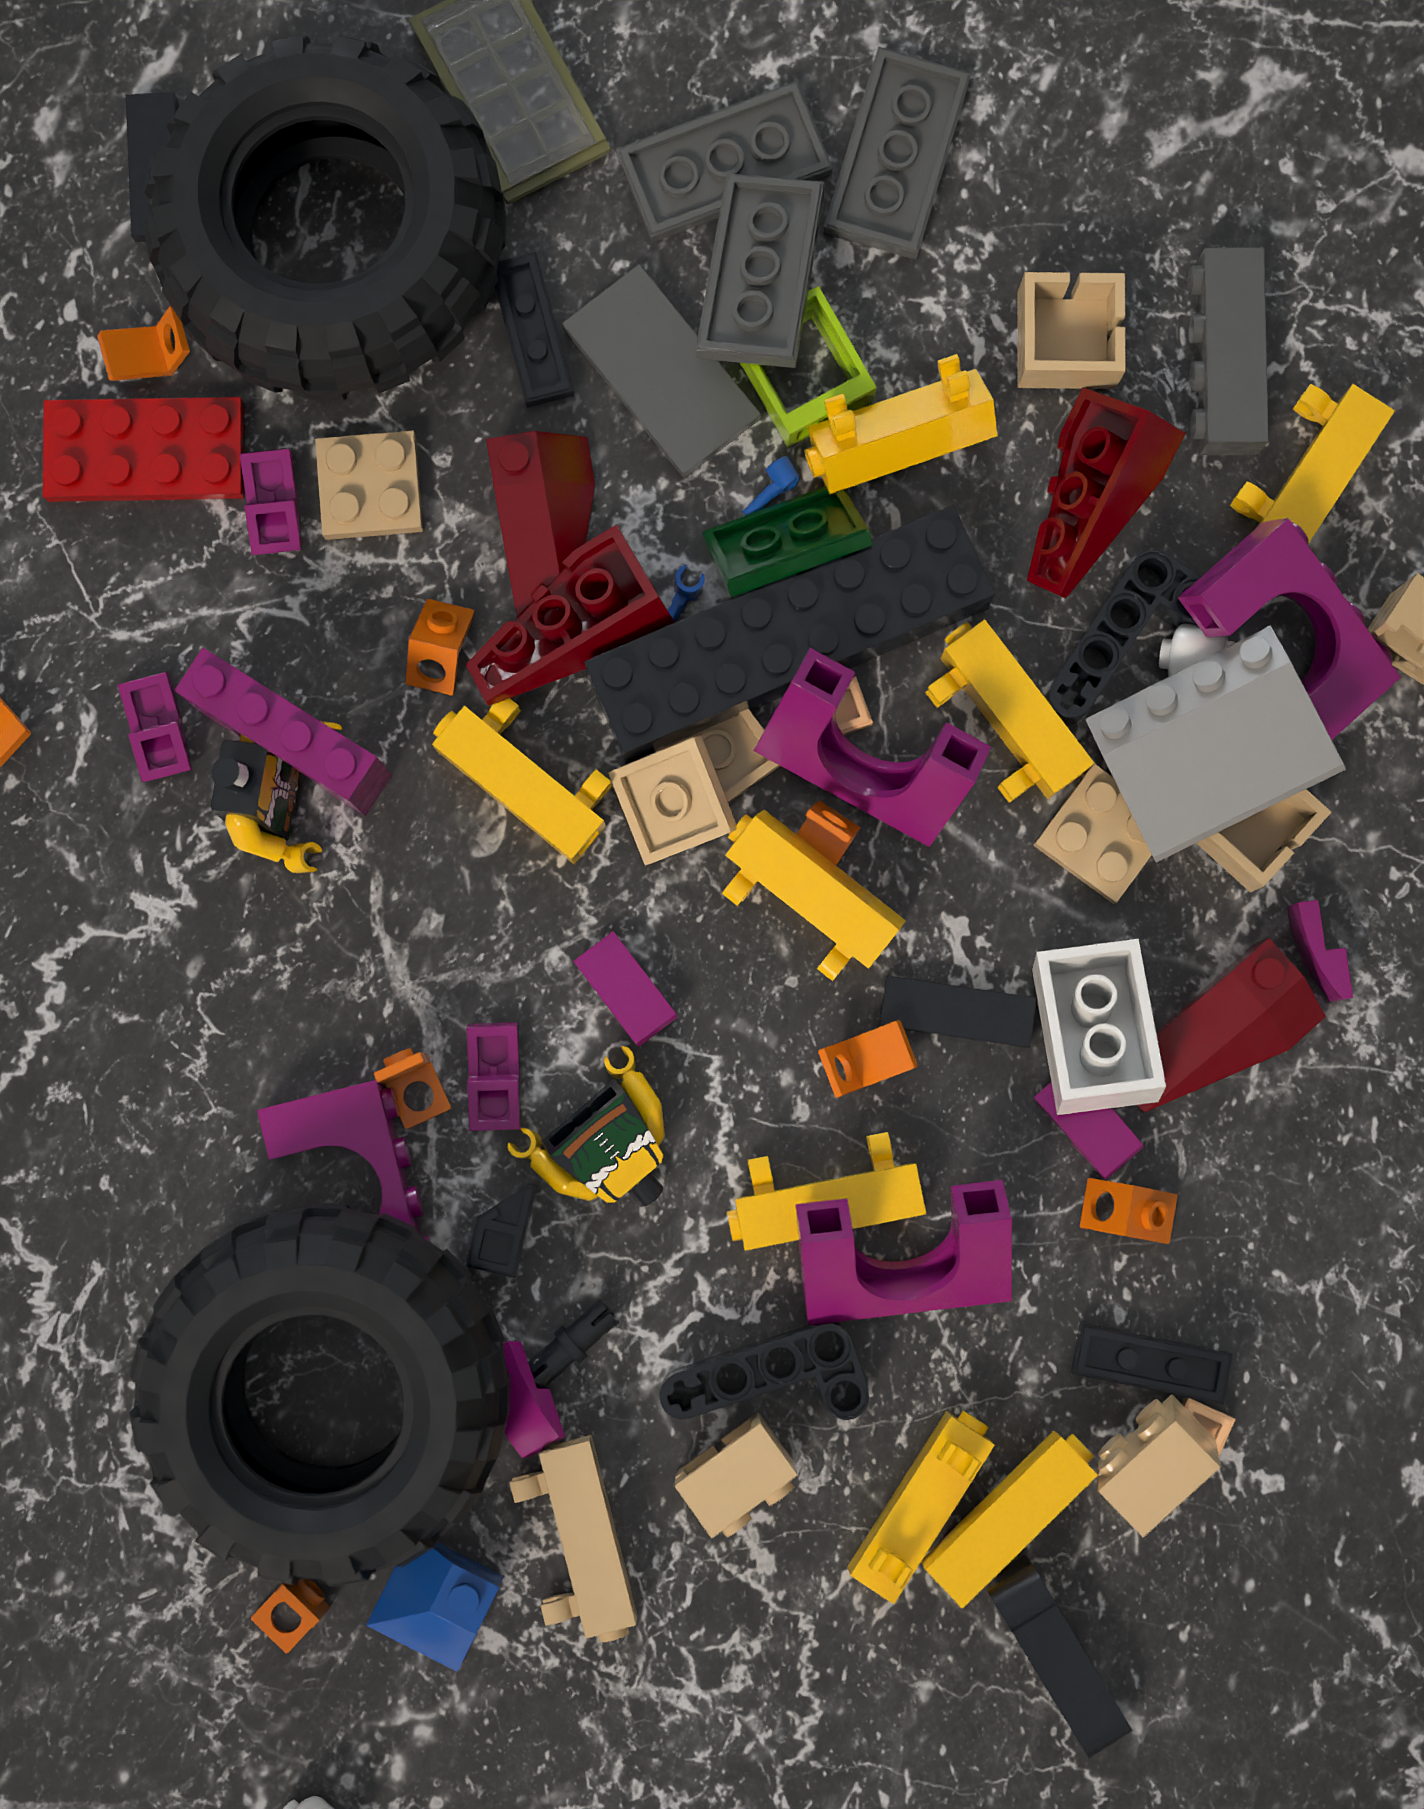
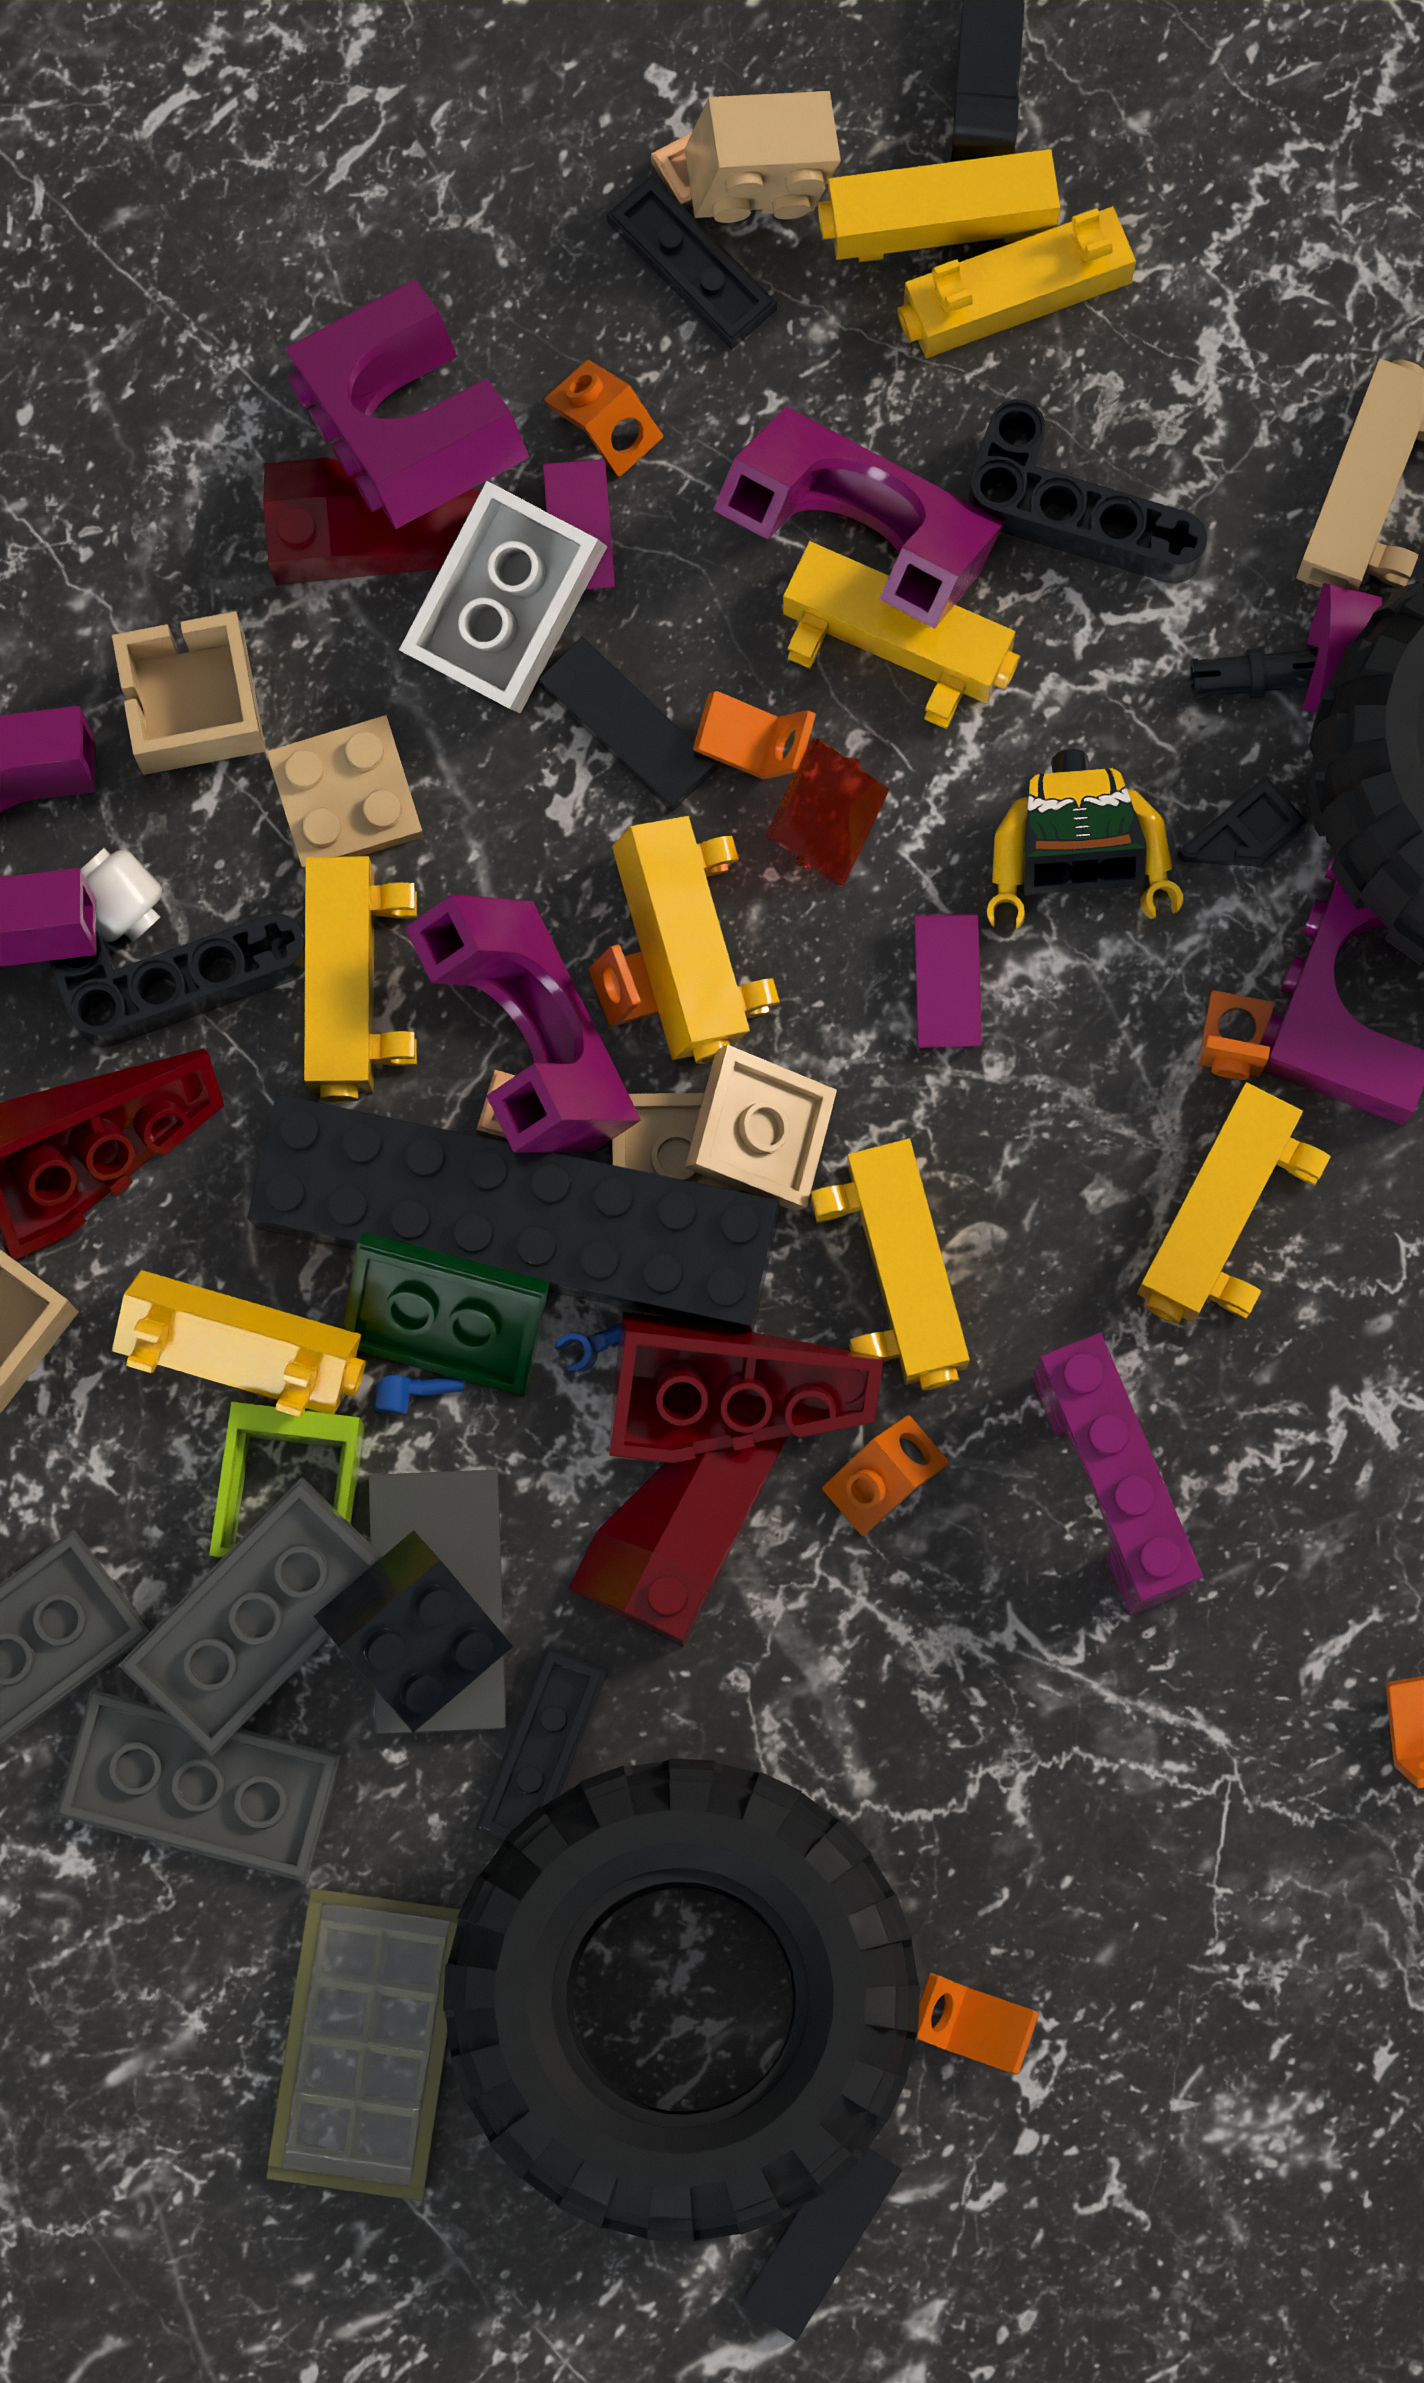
camera: 140 degrees left, 5 degrees down
(143, 449) = (1054, 1920): red plate -> none
(155, 726) = (1248, 1603): magenta slope -> none
(257, 801) = (1194, 1433): torso -> none
(271, 501) = (955, 1760): magenta slope -> none
(344, 964) = (1220, 1204): none -> yellow brick
(369, 485) = (837, 1703): tan plate -> none
(493, 1076) = (1145, 989): magenta slope -> none
(655, 320) = (413, 1631): none -> black brick
(732, 1482) = (1184, 411): tan piece -> none
(782, 1041) = (827, 812): none -> clear red piece
(1214, 744) = (177, 778): light grey slope -> none
(1317, 1105) = (410, 460): none -> magenta arch
(1325, 966) = (226, 511): magenta slope -> none

